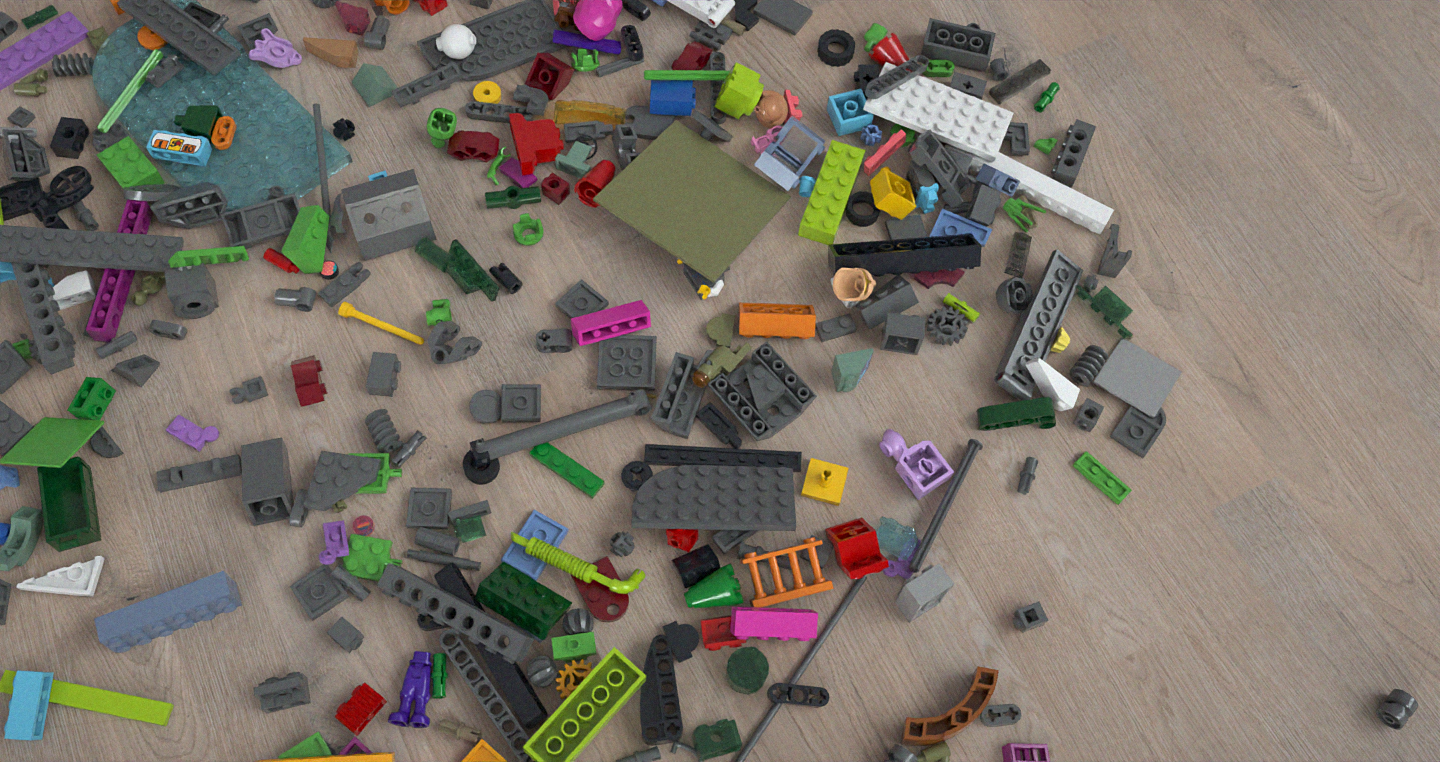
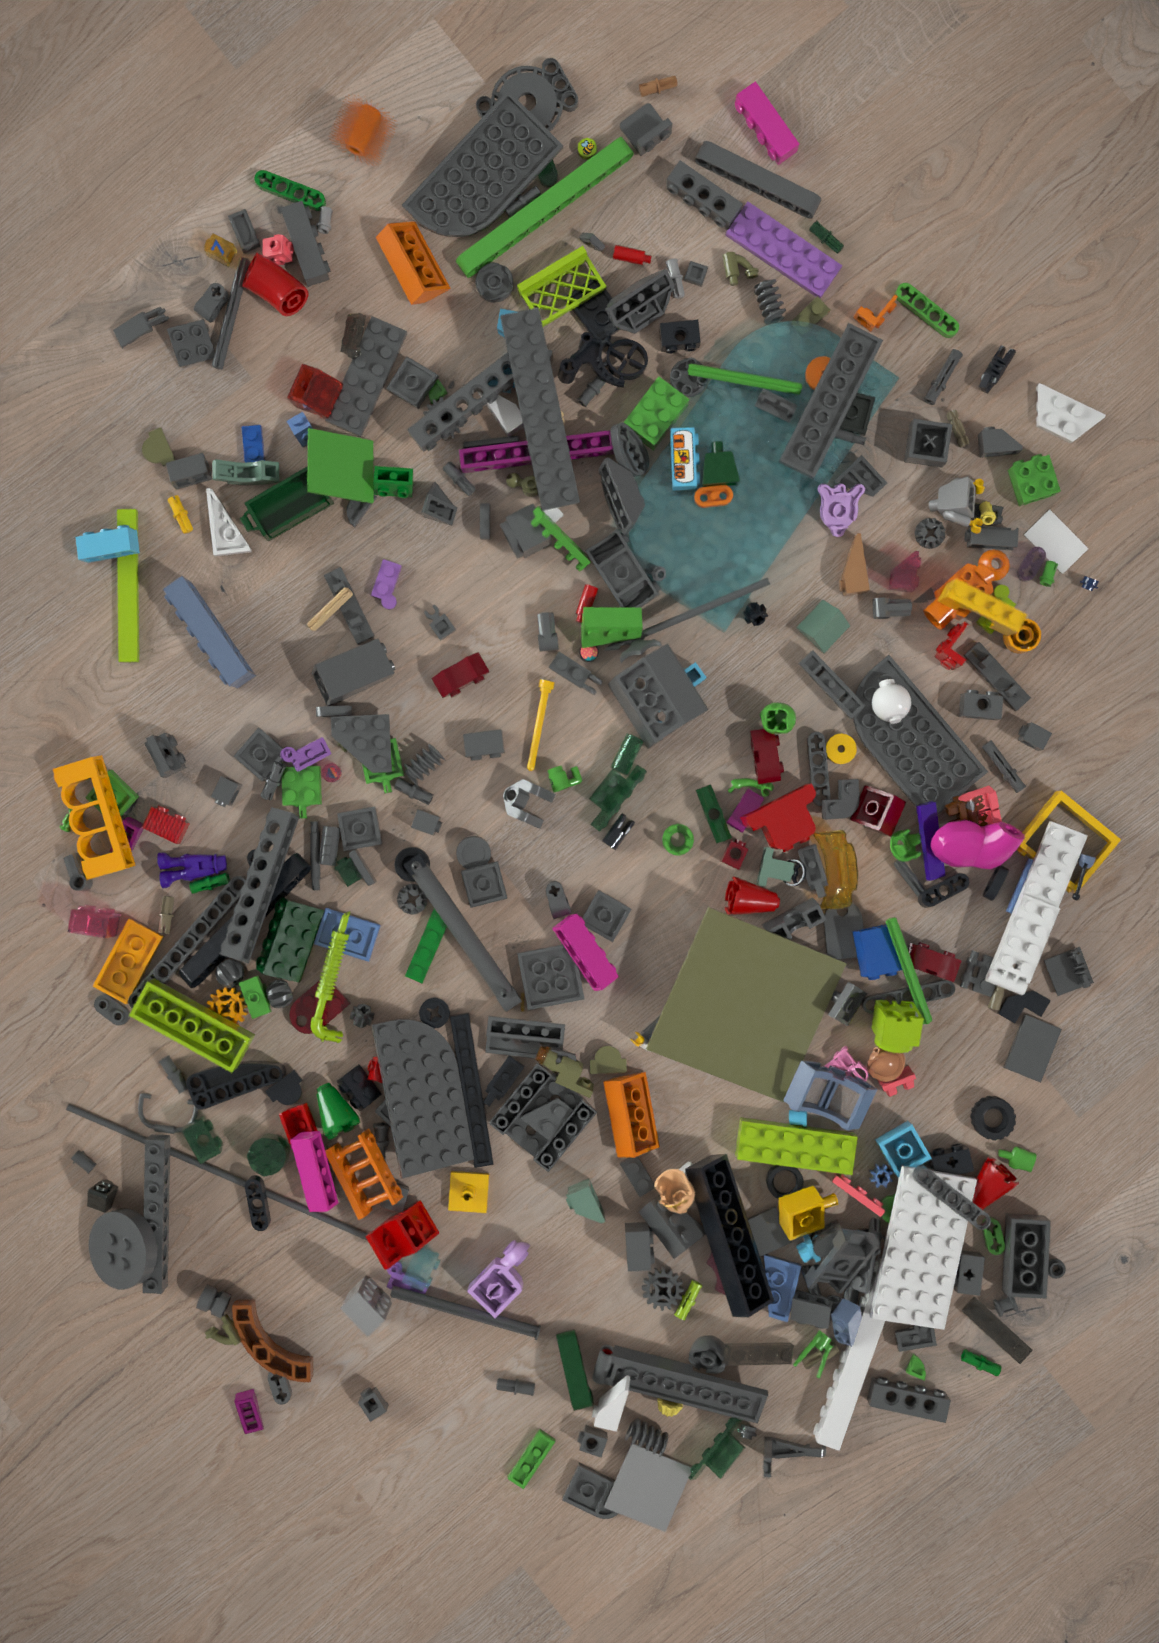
camera: 85 degrees right, 25 degrees up
(31, 622) = (180, 514): none -> yellow axle
(194, 488) = (329, 609): none -> tan axle
(443, 442) = (426, 822): none -> dark grey brick
(511, 481) = (409, 908): none -> dark grey gear

